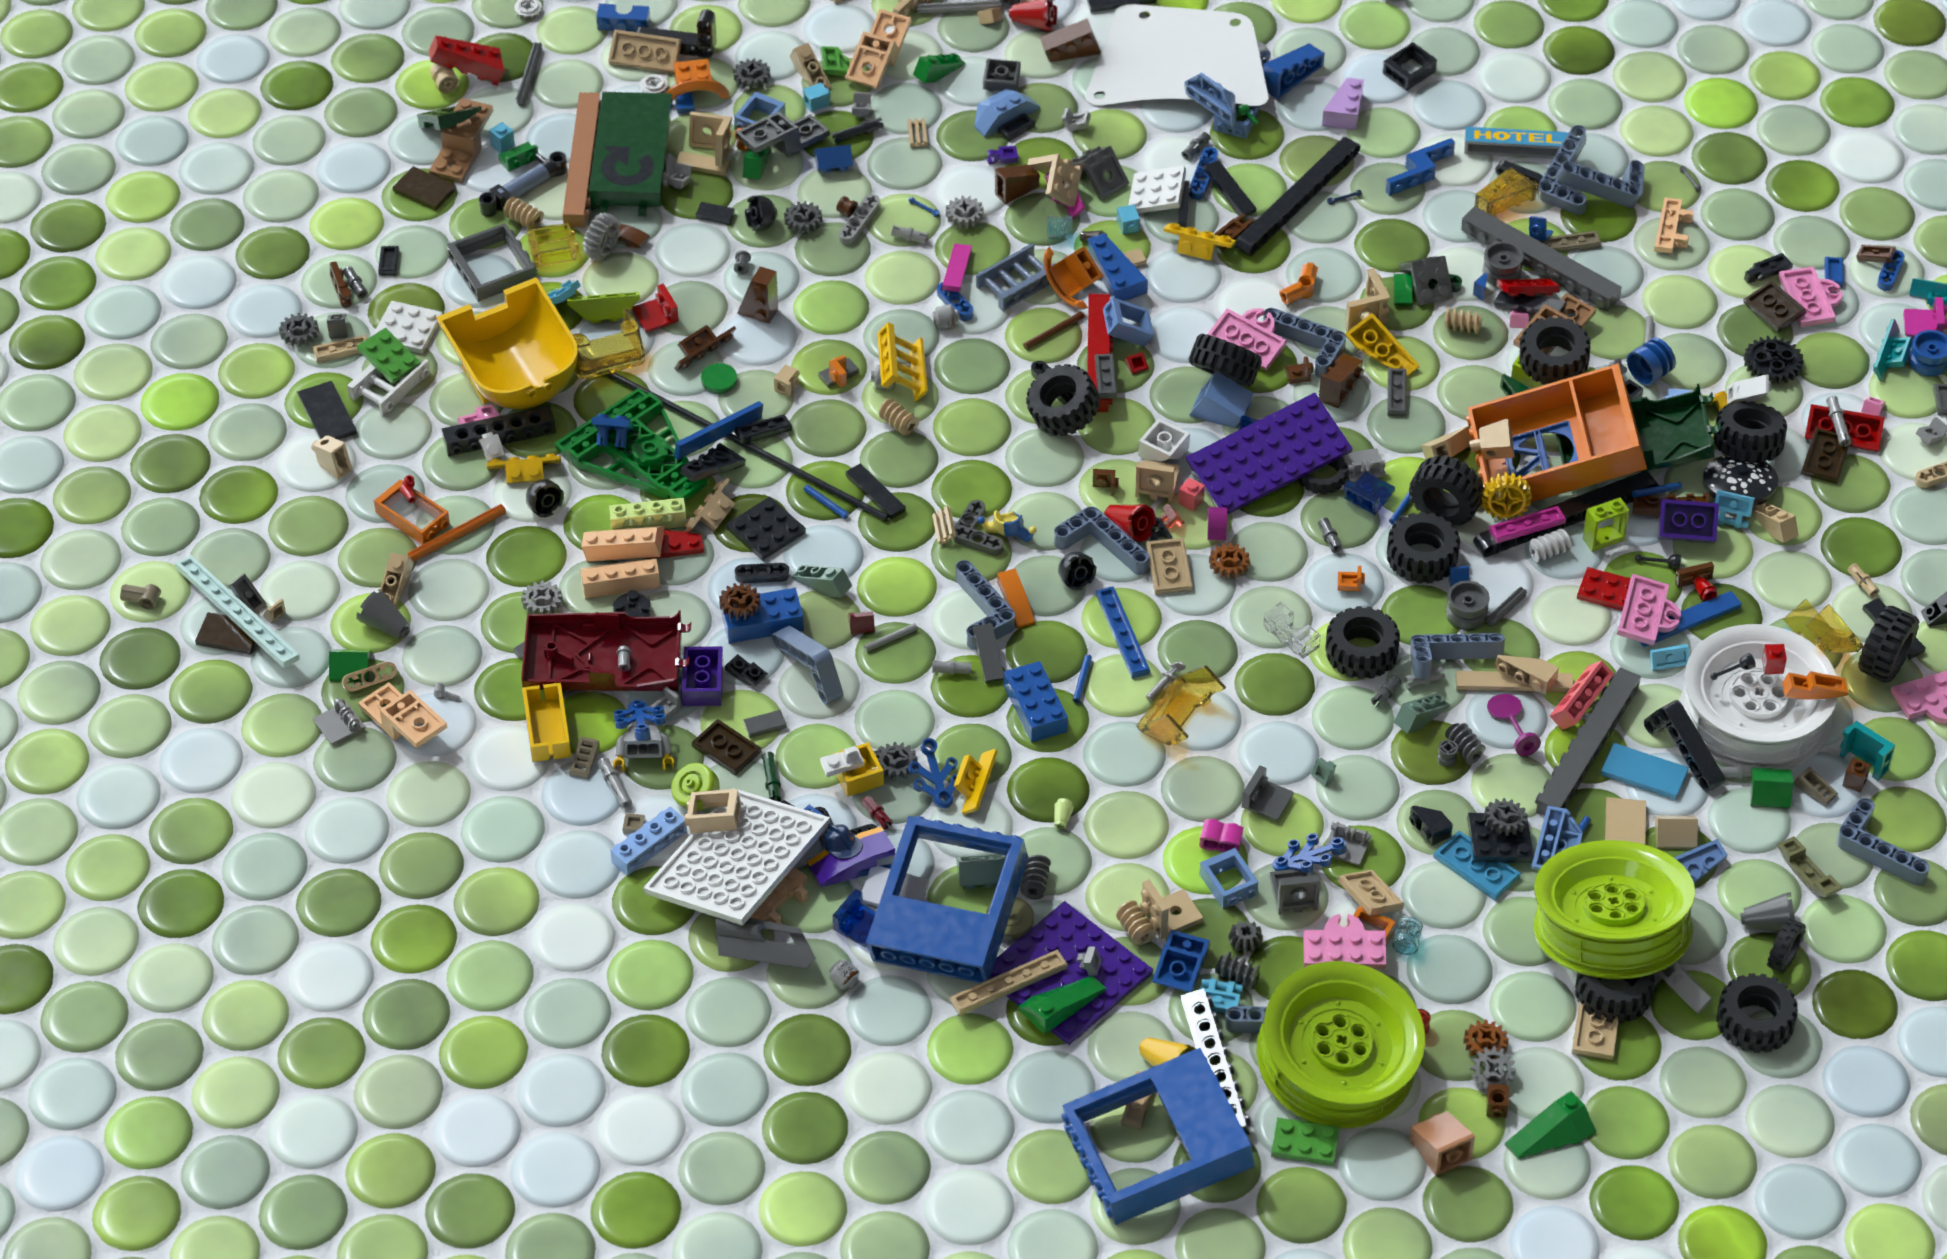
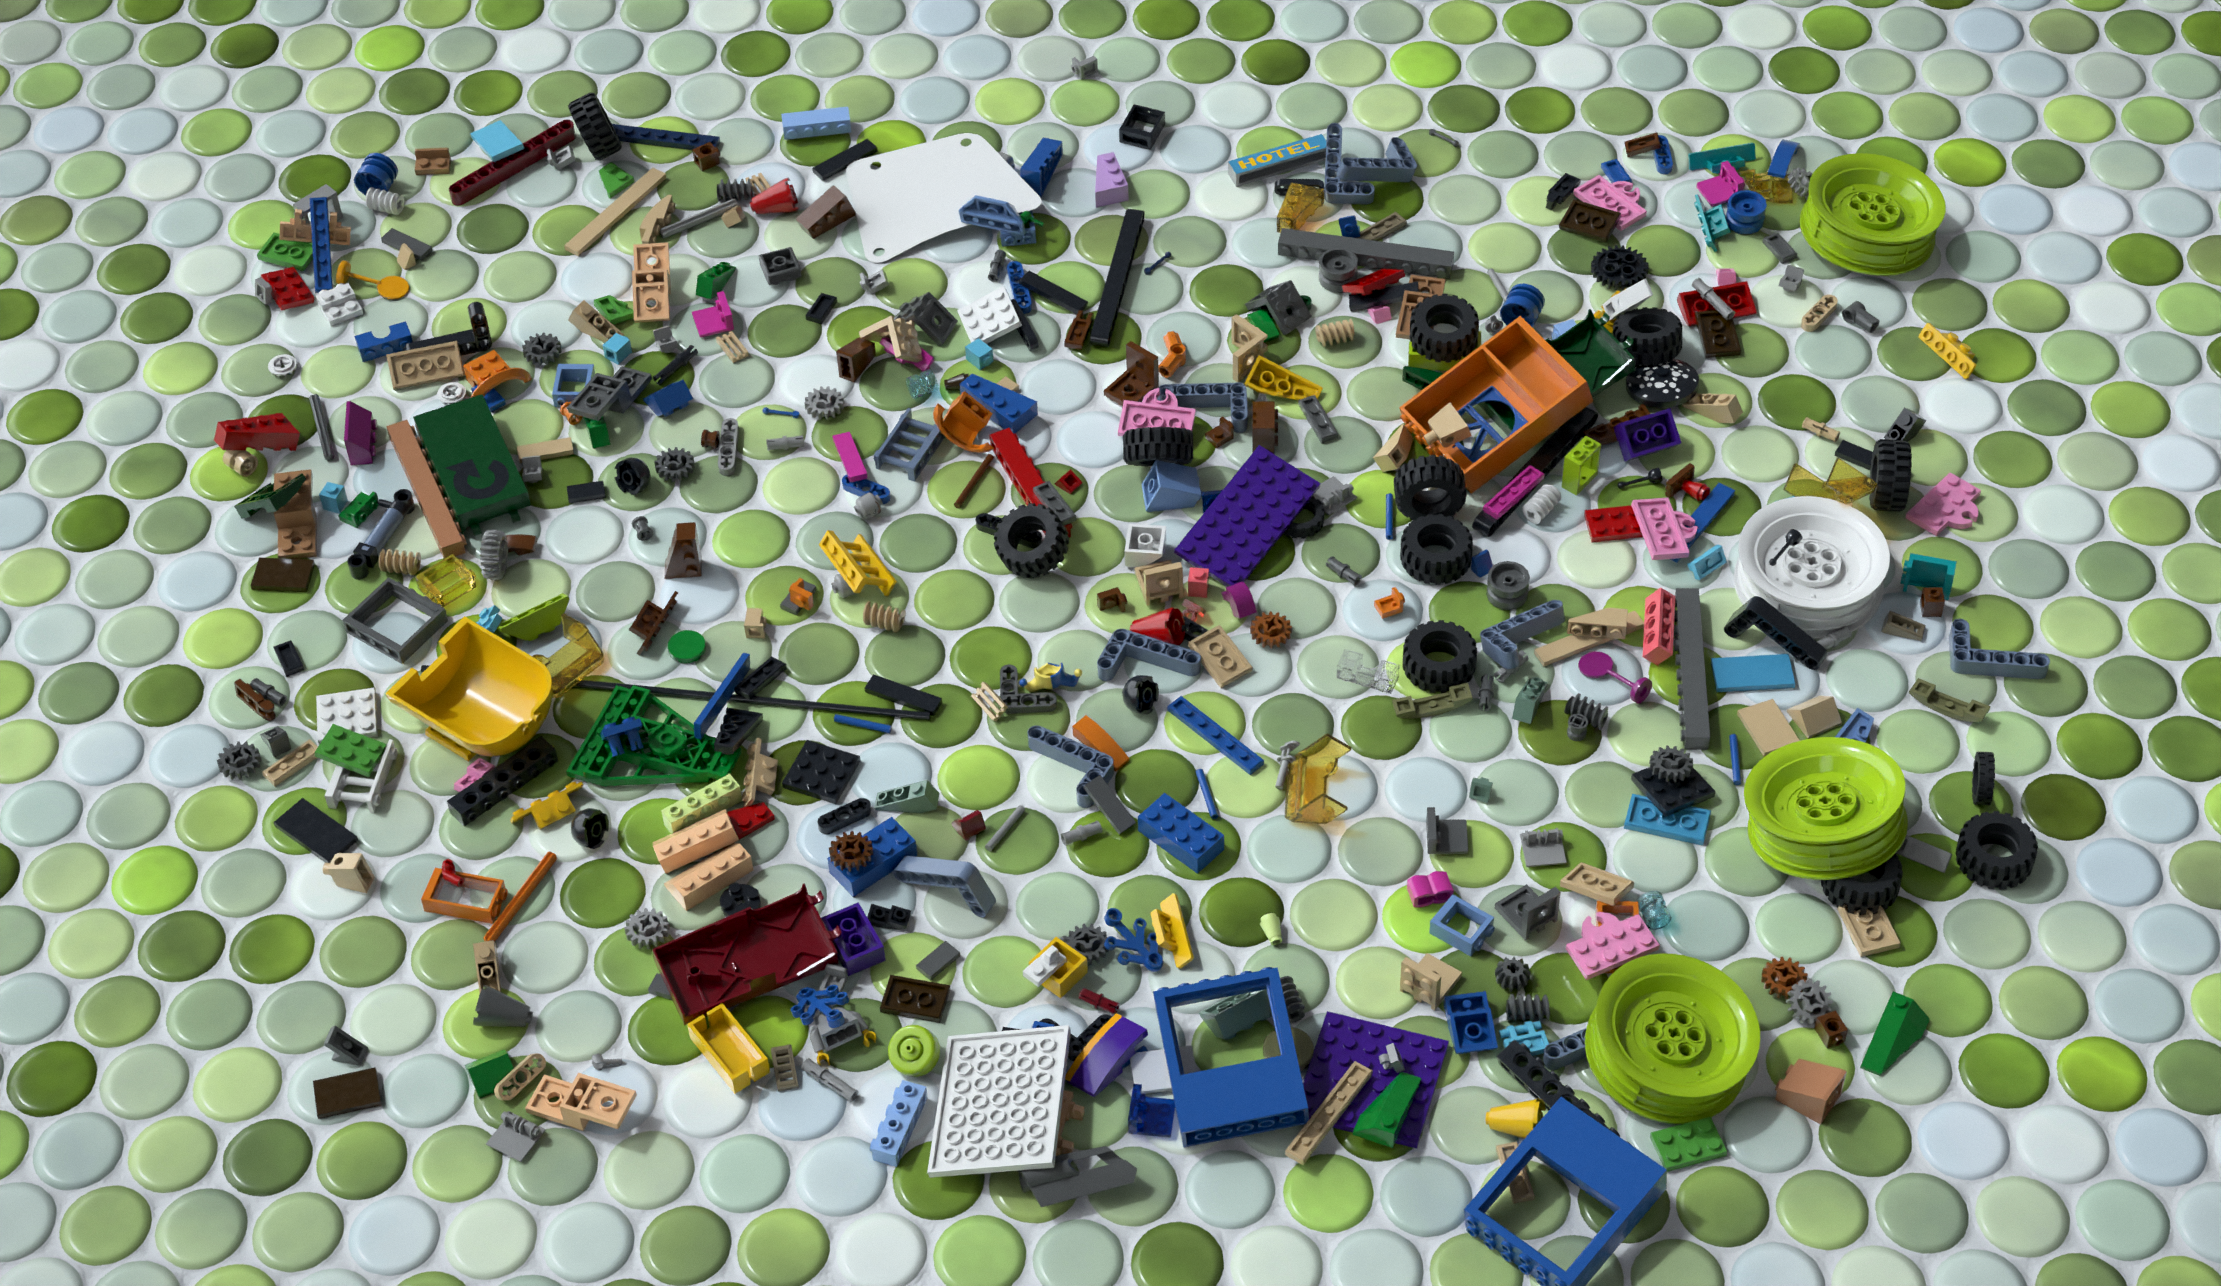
camera: 25 degrees left, 0 degrees up
(145, 596) = (239, 1091): dark tan piece -> none
(237, 611) = (346, 1067): light aqua plate -> none
(275, 611) = (382, 1051): tan slope -> none
(491, 446) = (508, 798): white bracket -> none
(553, 90) = (360, 434): none -> magenta slope
(624, 658) = (768, 948): light grey pin -> none
(632, 823) = (872, 1112): dark tan tile -> none
(657, 312) = (590, 604): red bracket -> none
(716, 821) = (955, 1078): tan window -> none
(719, 137) = (548, 421): tan bracket -> none
(772, 783) = (983, 1015): dark green pin -> none
(841, 842) = (1090, 1045): dark blue piece -> none
(844, 974) = (1170, 1173): light grey head -> none
(916, 102) = (714, 319): none -> dark pink bracket
(1002, 109) = (798, 297): medium blue wedge -> none
(1005, 154) = (826, 336): dark purple plate -> none
(1113, 314) = (1031, 439): medium blue window -> none
(1135, 923) = (1405, 1005): tan piece -> none
(1197, 243) = (1056, 352): yellow bracket -> none
(1254, 294) = (1140, 376): none -> reddish brown bracket
(1307, 855) = (1502, 889): blue plant -> none
(1330, 683) = (1433, 705): none -> olive slope
(1368, 492) = (1354, 518): clear blue bracket -> none
(1420, 166) = (1208, 211): blue bracket -> none
(1431, 824) = (1605, 798): black slope -> none
(1480, 286) = (1331, 297): blue slope -> none
(1506, 606) = (1538, 573): dark grey axle -> none
(1517, 499) = (1488, 475): yellow gear -> none
(1557, 834) = (1726, 767): medium blue wedge -> none
(1657, 489) = (1596, 420): blue bar -> none
(1667, 232) = (1452, 180): light nougat hinge -> none
(1734, 504) = (1678, 404): medium azure plate -> none
(1769, 914) = (1949, 755): dark grey cone -> none
(1771, 787) = (1870, 642): green slope -> none
(1774, 659) = (1815, 525): red brick -> none
(1814, 686) = (1862, 536): orange slope -> none

